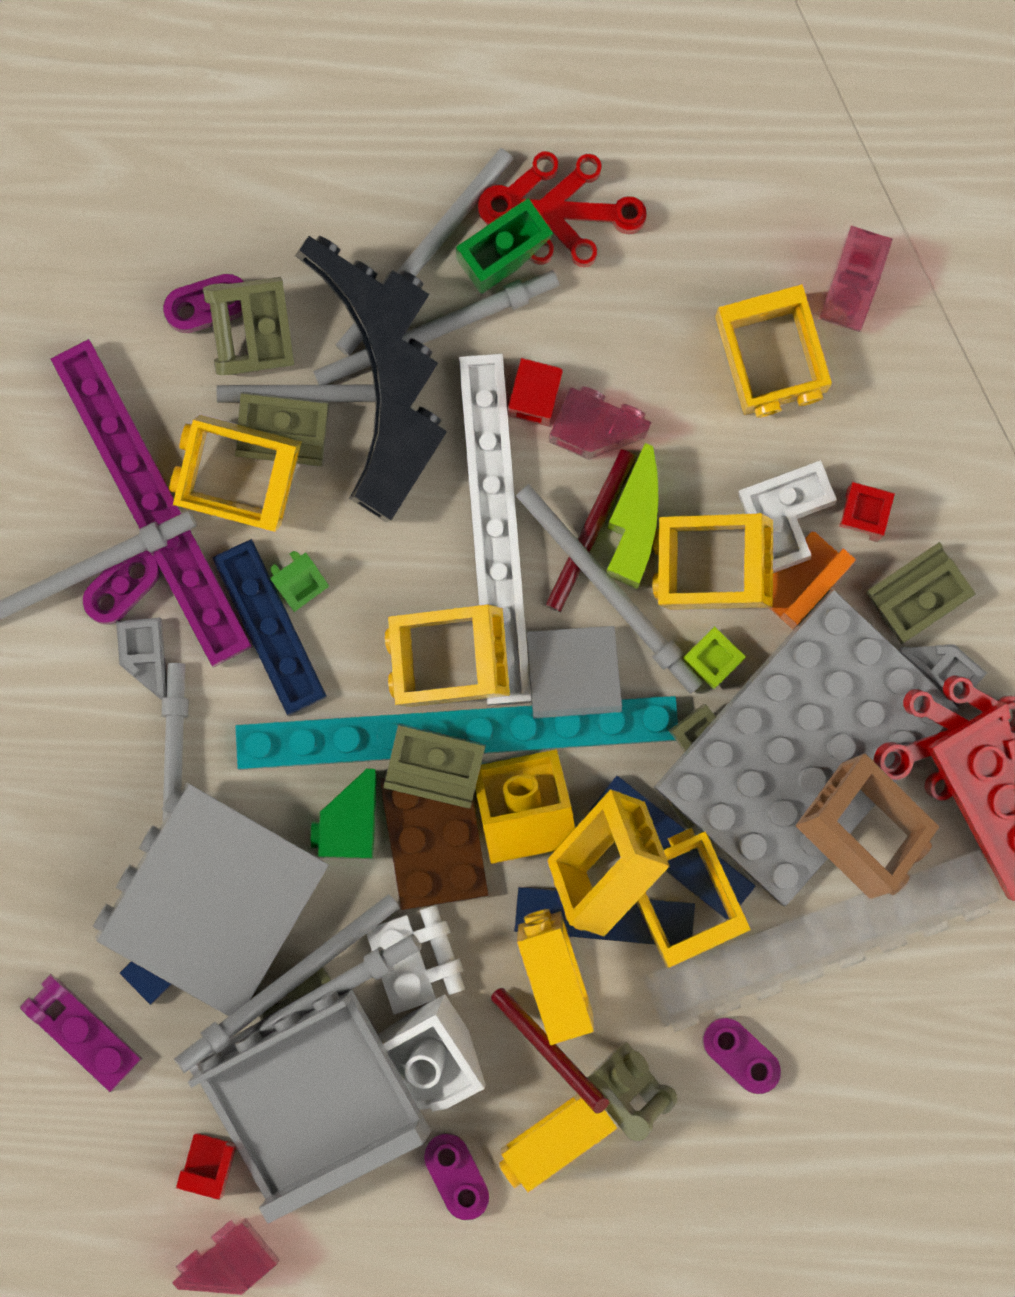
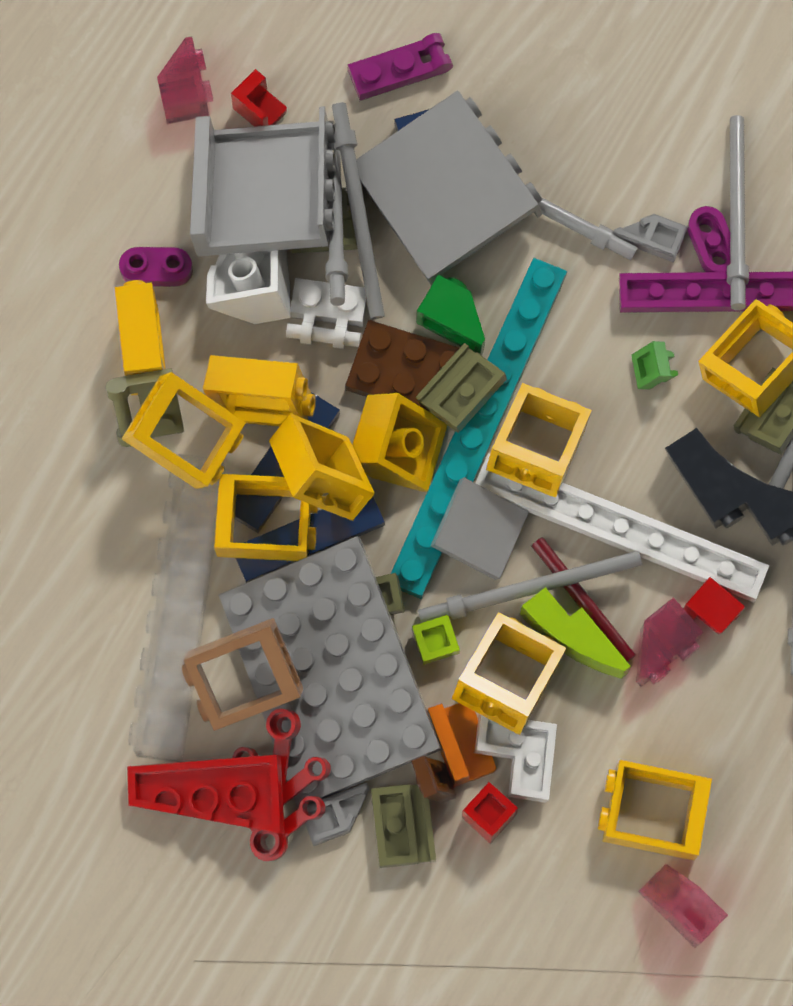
camera: 120 degrees right, 10 degrees down
(269, 627) = (627, 331): dark blue tile -> none
(552, 1053) = (194, 360): dark red bar -> none
(650, 1068) = (150, 414): none -> yellow window
(741, 1056) = (127, 509): magenta plate -> none
(866, 581) = (433, 779): none -> reddish brown plate

